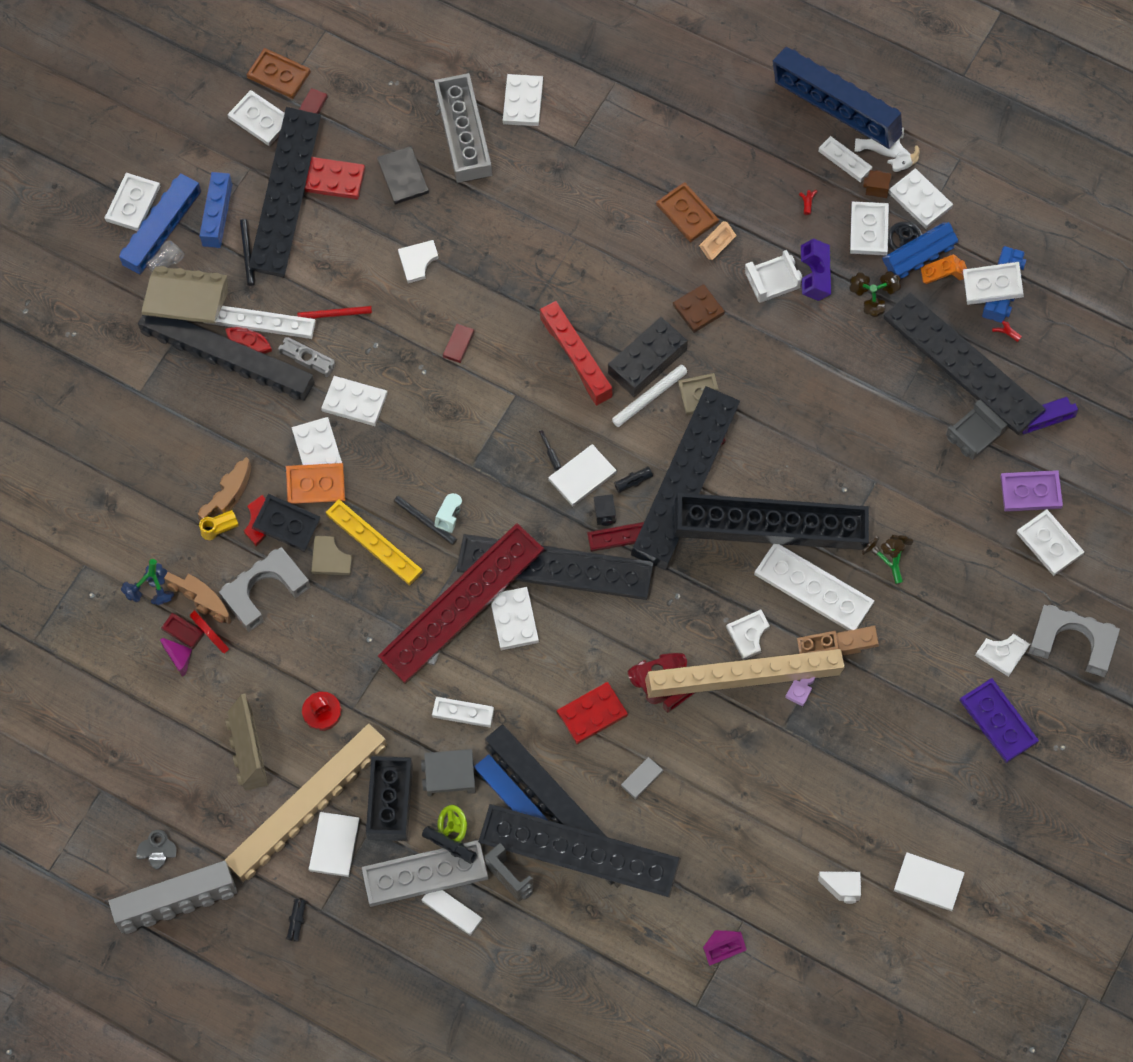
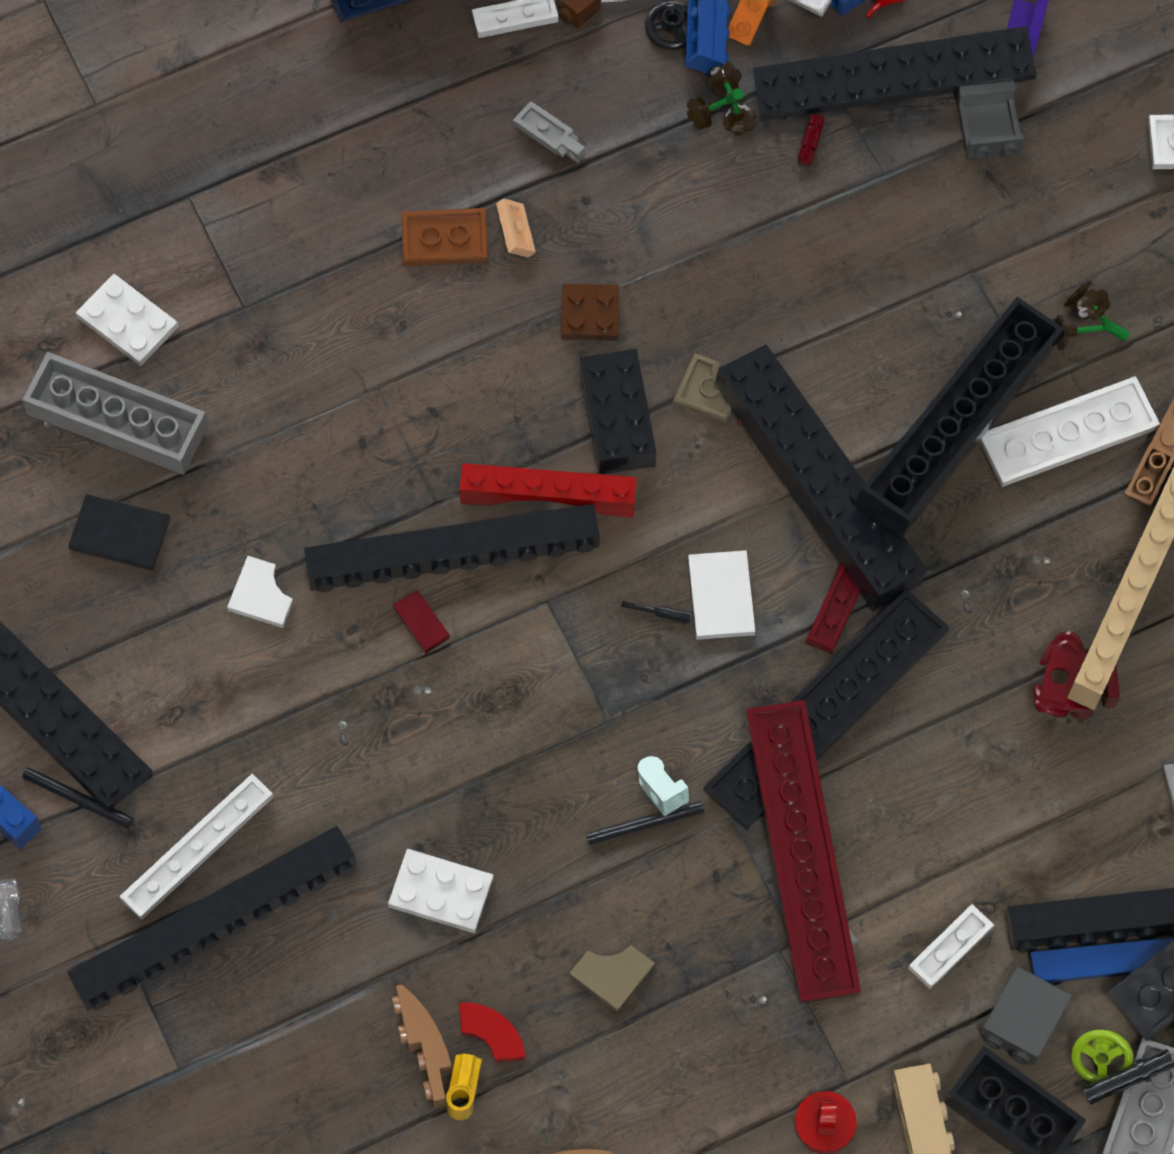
camera: 60 degrees left, 0 degrees up
(185, 294) = (91, 914): dark tan slope -> none
(249, 339) = (211, 877): red tile -> none
(276, 566) = (587, 1125): light grey arch -> none
(286, 522) = (526, 996): black plate -> none
(315, 483) = (494, 924): orange tile -> none
(318, 361) = (276, 826): light grey piece -> none
(334, 178) = (56, 617): plate -> none
(335, 312) = (257, 744): red bar -> none
(354, 401) = (406, 801): white plate -> none
(374, 542) = (632, 904): yellow plate -> none
(509, 330) = (452, 548): none -> black brick
(514, 619) = (864, 803): white plate -> none
(592, 713) = (1056, 794): red plate -> none
(604, 510) = (792, 598): black brick -> none
(633, 479) = (772, 539): black pin -> none
(649, 395) = (669, 446): white axle -> none
(747, 633) = (1074, 547): white tile -> none
(773, 277) = (614, 199): white panel -> none
(788, 219) = (549, 132): none -> light grey hinge
(808, 201) = (538, 95): red bar -> none
(817, 256) = (630, 134): dark purple arch -> none
(869, 228) = (631, 53): white plate -> none
(890, 349) = (811, 140): none -> dark red axle
(1031, 490) = (1111, 116): medium lavender plate -> none

